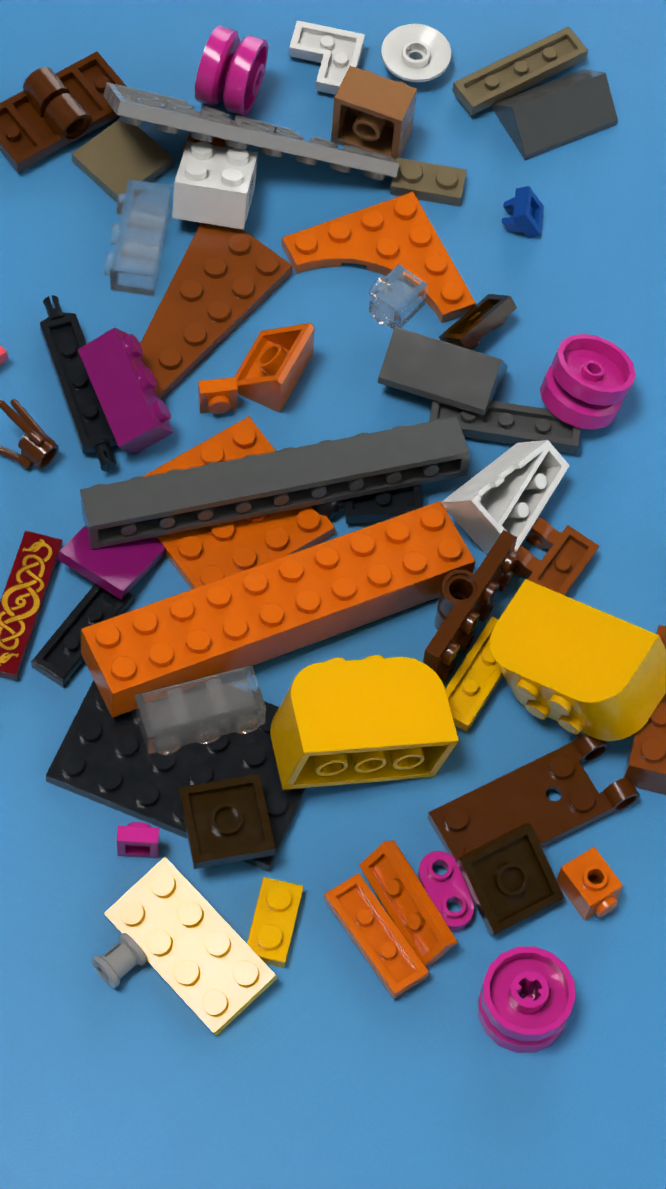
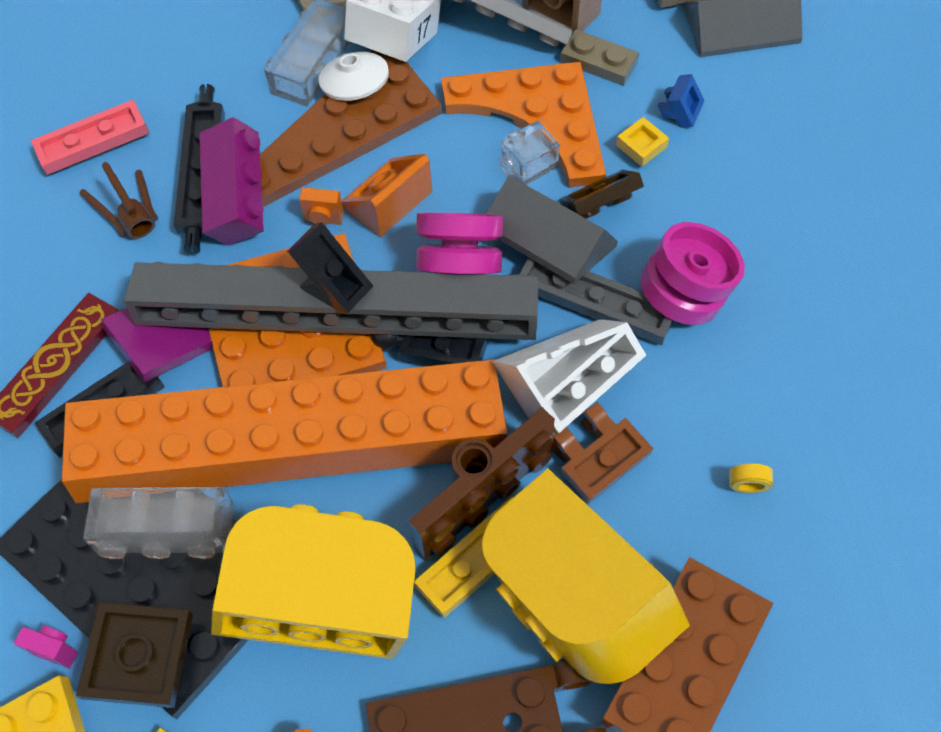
camera: 25 degrees right, 0 degrees up
(196, 255) = (353, 76): none -> white dish
(275, 455) = (330, 270): none -> black slope
(371, 401) = (459, 243): none -> dark pink wheel
(499, 262) = (642, 141): none -> yellow plate

